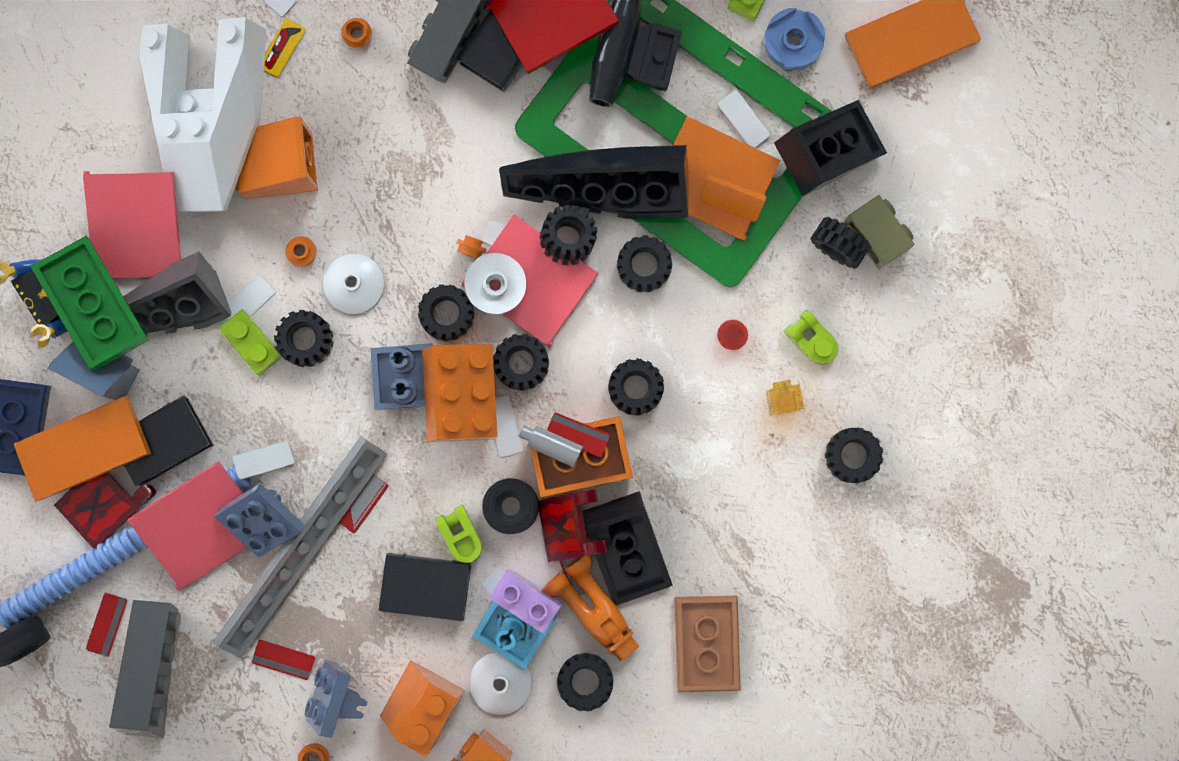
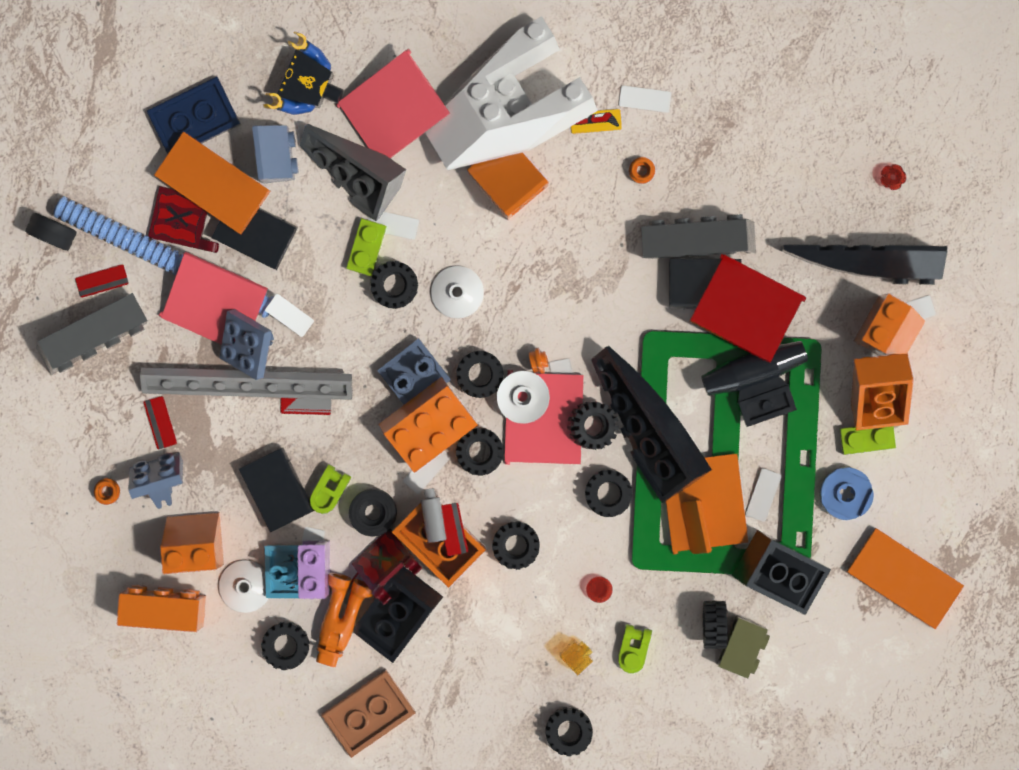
camera: 50 degrees right, 5 degrees up
(89, 303) = (317, 121): green plate -> none
(309, 255) = (455, 248): orange plate -> none

